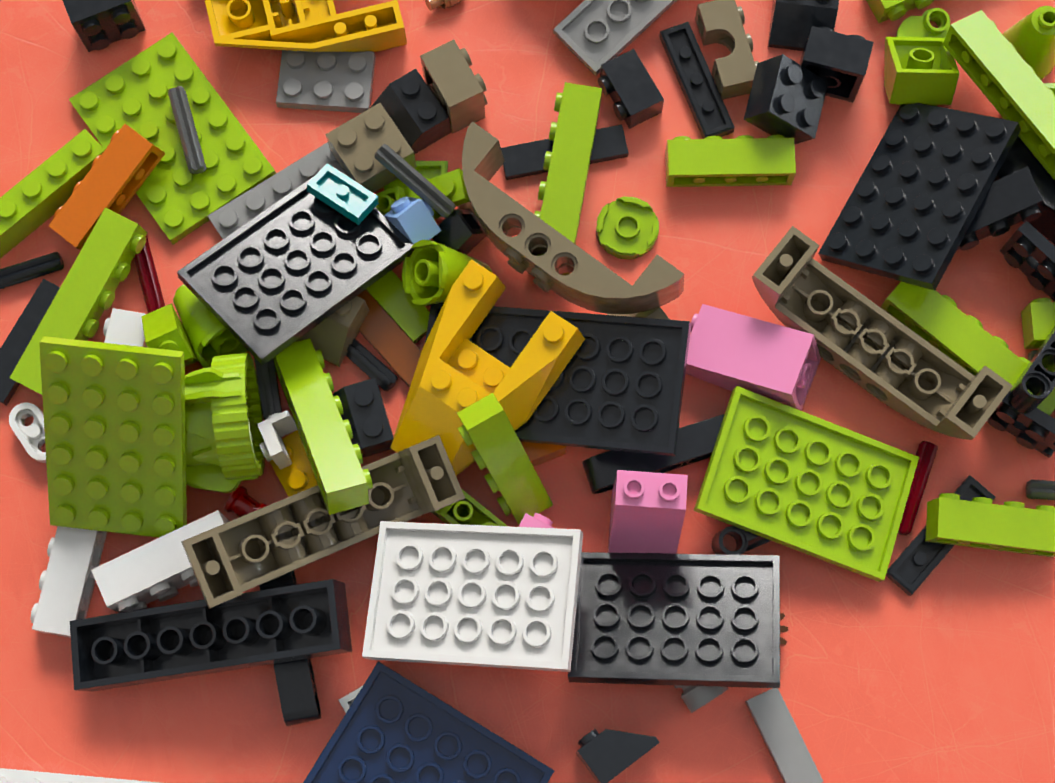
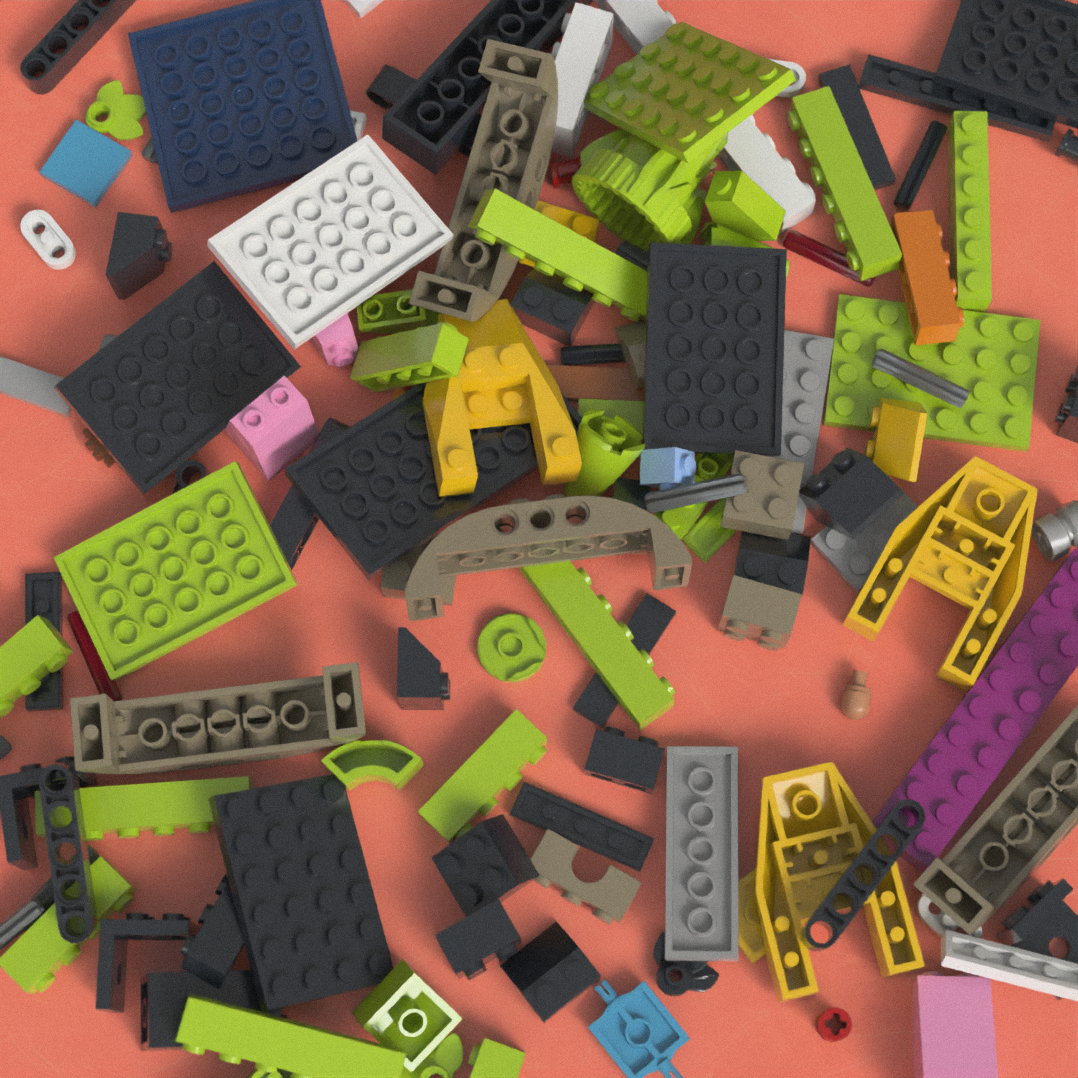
camera: 135 degrees right, 0 degrees up
(246, 100) = (897, 437): none -> yellow slope
(272, 430) = (592, 220): white bracket -> none
(314, 98) = (849, 493): none -> black slope
(342, 193) = (739, 431): plate -> none
(711, 253) = (419, 675): none -> black slope
(752, 355) = (310, 627): bright pink slope -> none
(782, 212) = (373, 761): none -> lime brick

